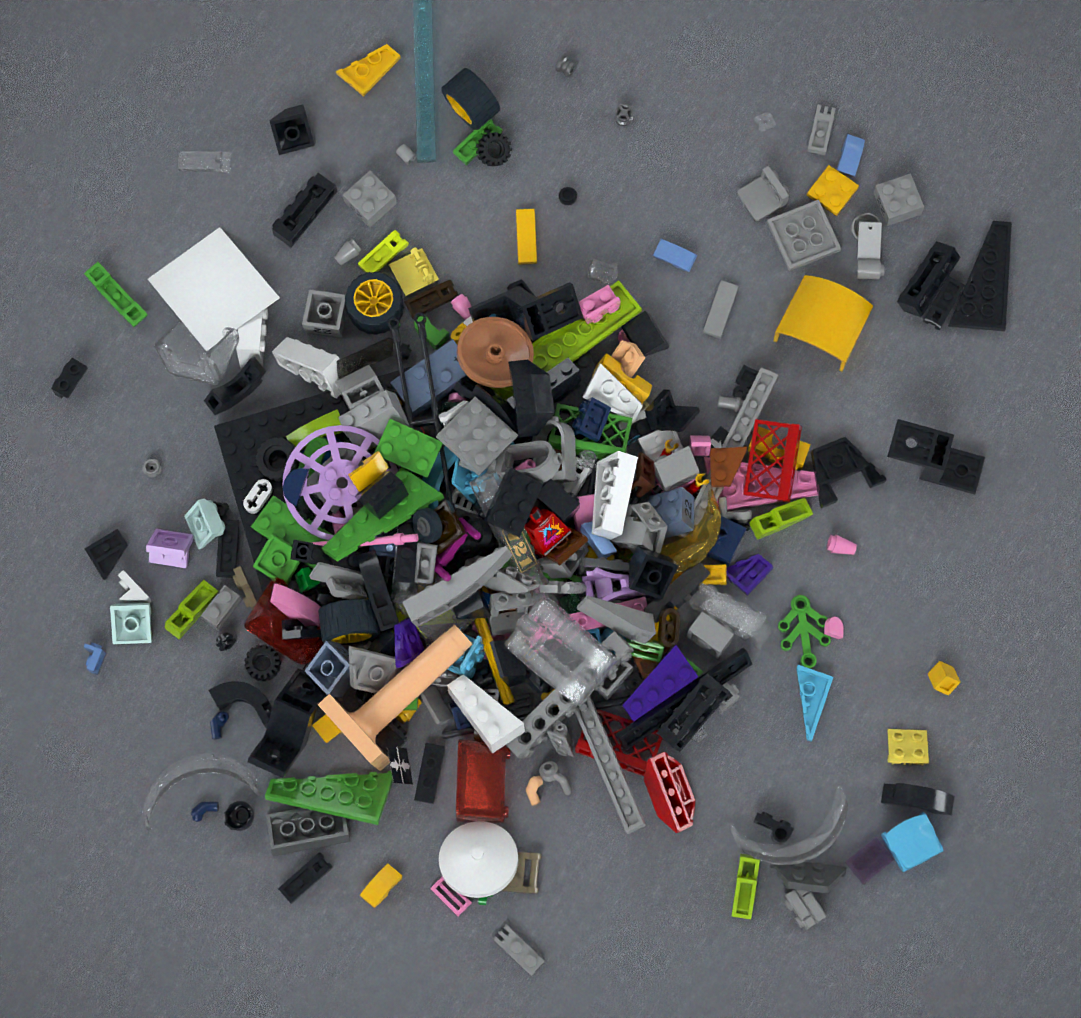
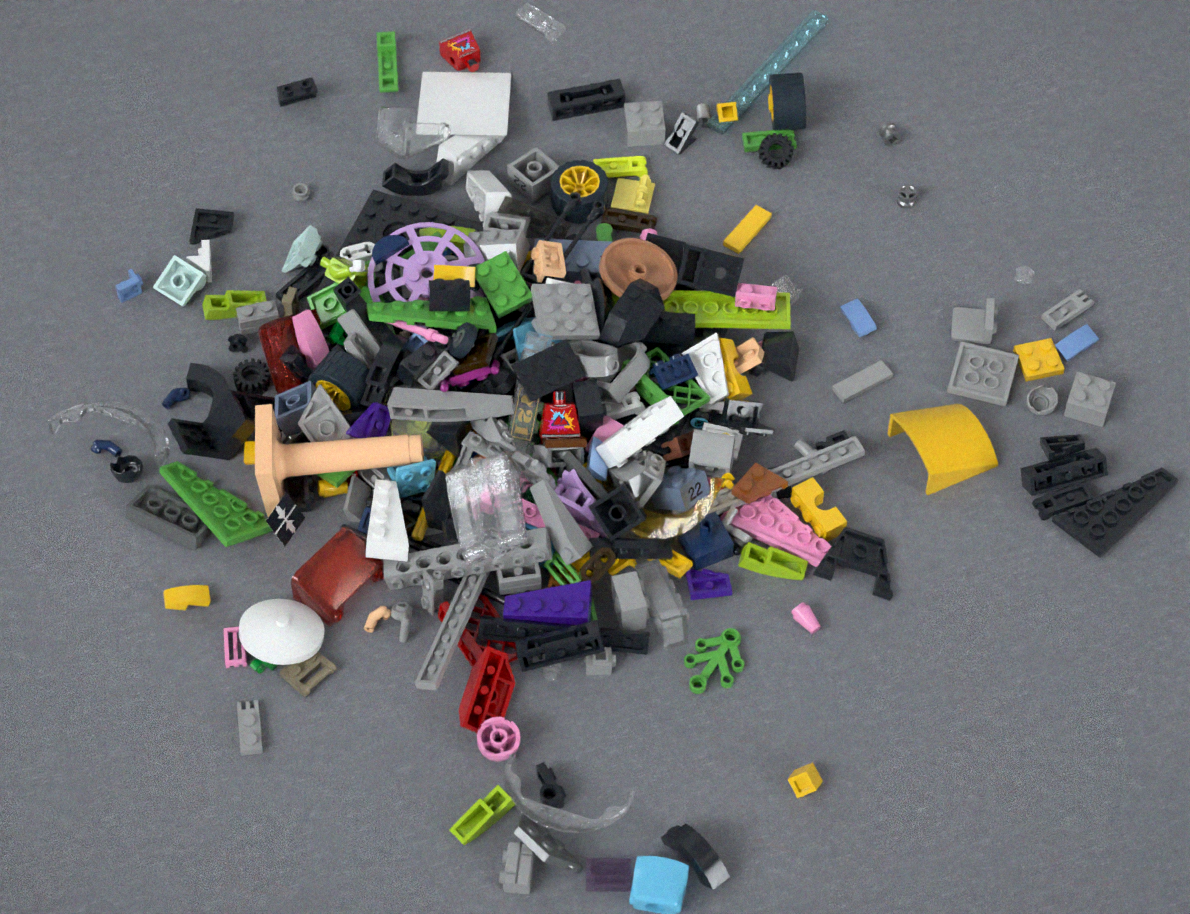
camera: 35 degrees right, 20 degrees down
(166, 238) = (461, 51): none -> red torso
(169, 548) = (258, 251): lavender bracket -> none
(275, 527) = (340, 268): none -> lime torso
(291, 130) = (627, 42): black slope -> none
(304, 878) = (134, 549): black plate -> none
(347, 252) = (593, 148): light grey cone -> none
(366, 72) = (728, 43): yellow wing -> none
(407, 186) = (682, 132): none -> slope
(426, 140) = (727, 112): none -> yellow slope
(426, 400) = (548, 260): none -> light nougat bracket
(429, 773) = (304, 547): black plate -> none
(567, 196) = (808, 222): black plate -> none
(587, 459) = (643, 396): clear plate -> none
(700, 445) = (748, 454): bright pink slope -> none
(711, 821) = (498, 739): none -> bright pink cylinder
(789, 461) = (813, 518): red fence -> none
(813, 693) = (680, 711): medium azure wing -> none
(834, 627) = (743, 674): bright pink tile -> none
(868, 251) = (1029, 418): light grey door -> none
(907, 747) = (724, 811): light yellow hinge -> none
(909, 257) = (1060, 446): none -> black wing
(936, 456) = (948, 598): black bracket -> none

